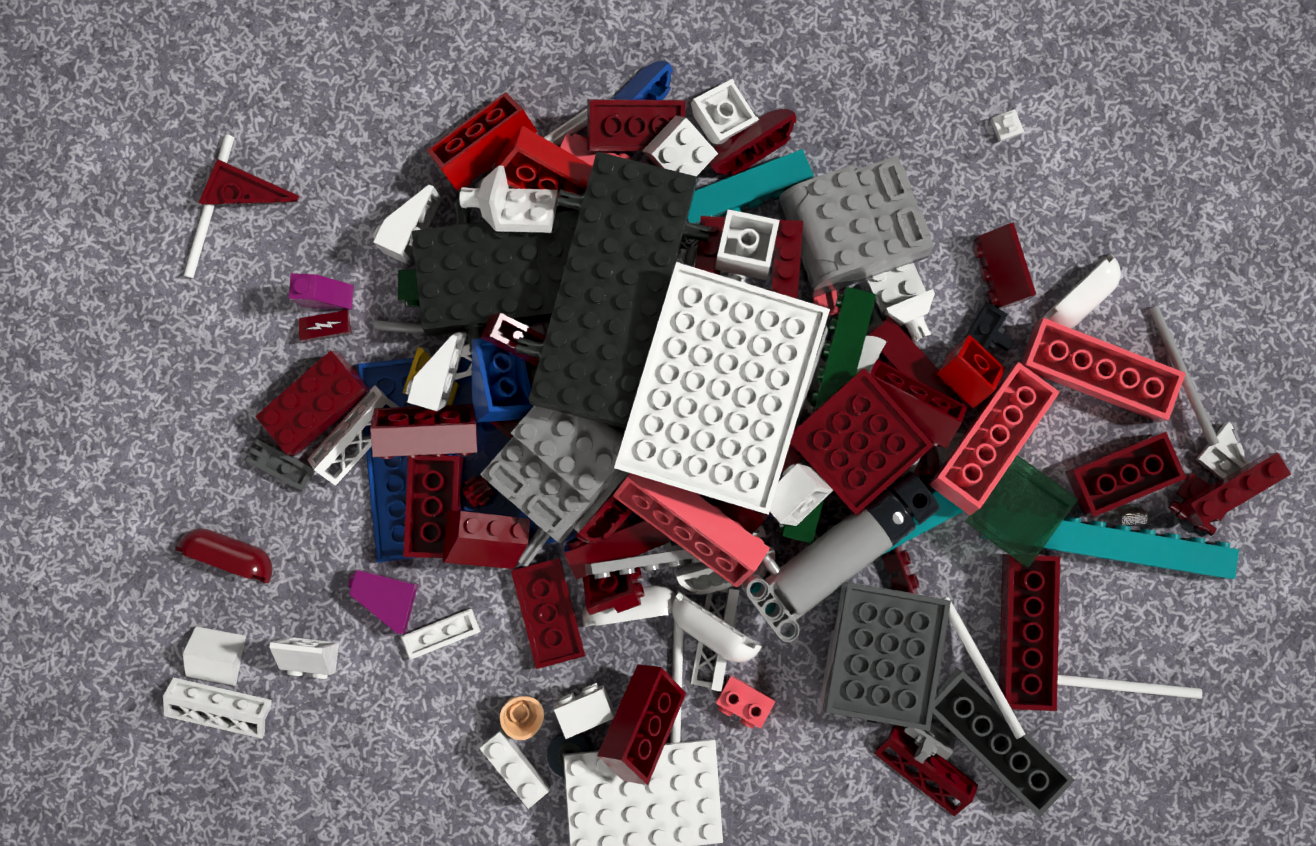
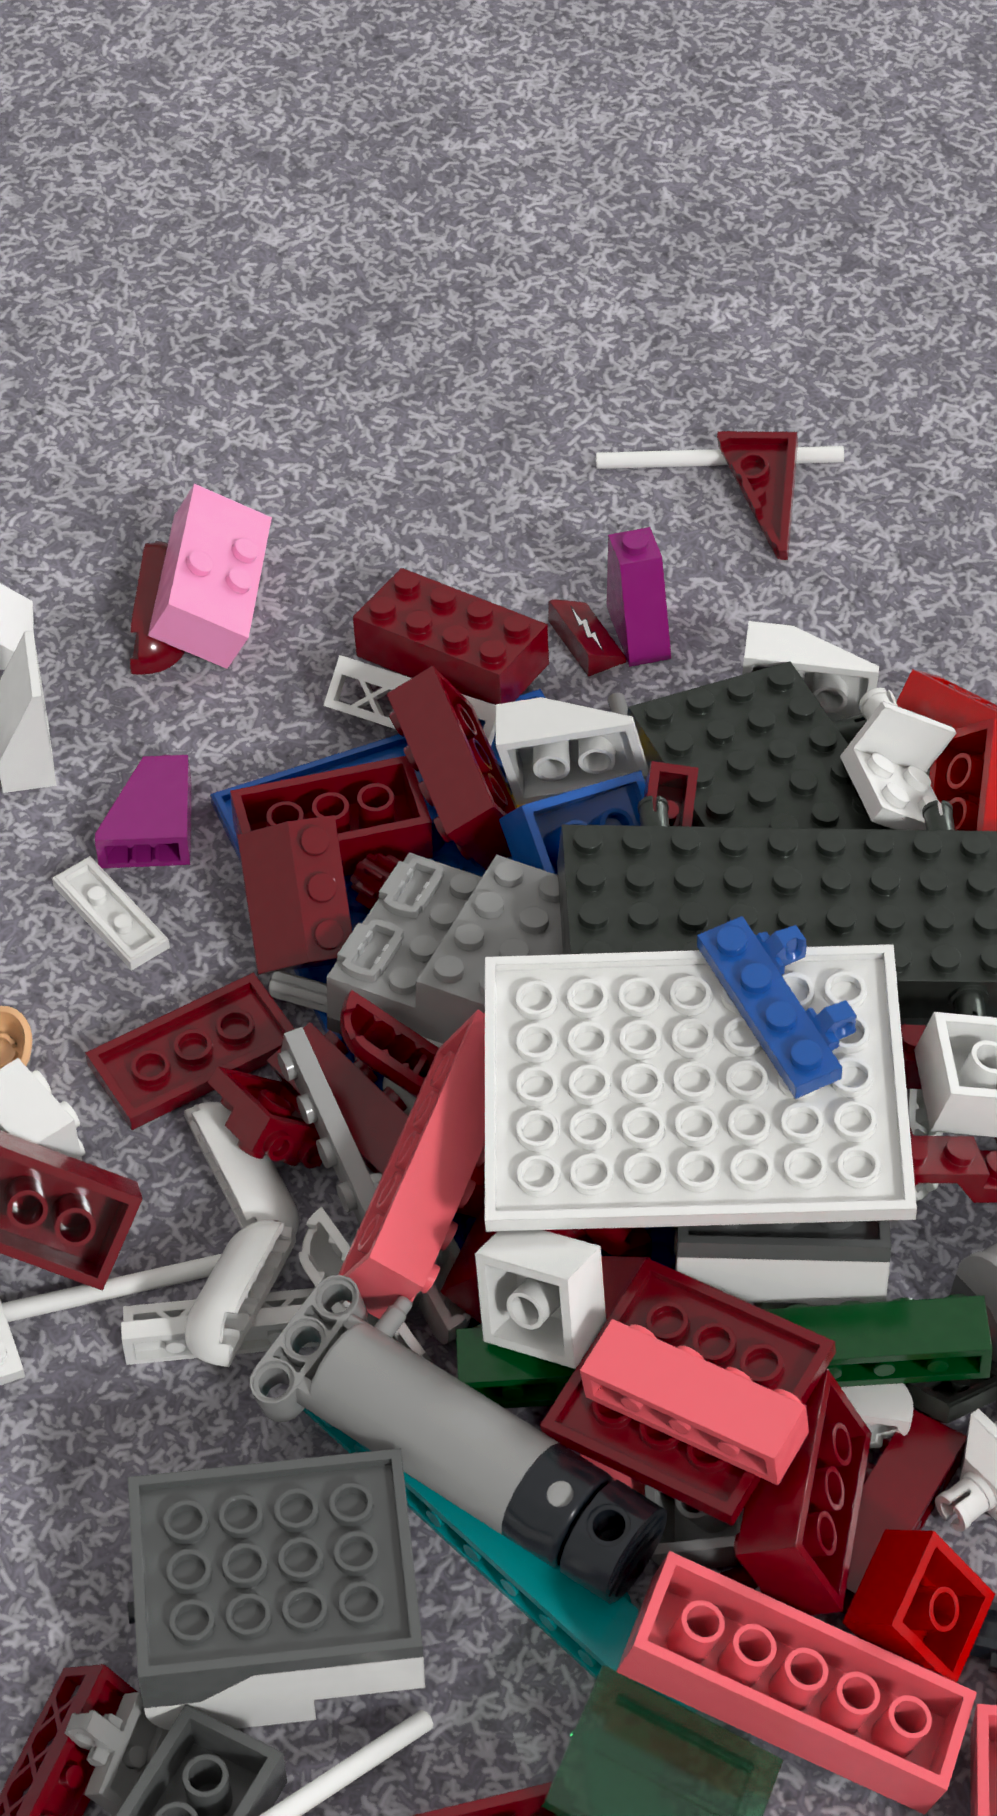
camera: 75 degrees right, 35 degrees down
(222, 524) = (210, 576): none -> bright pink brick
(281, 465) = (330, 634): dark grey hinge -> none
(717, 333) = (792, 1038): none -> blue hinge
(744, 702) = (111, 1398): coral brick -> none
(880, 443) = (695, 1400): none -> coral brick
(899, 562) = (474, 1607): dark red hinge -> none

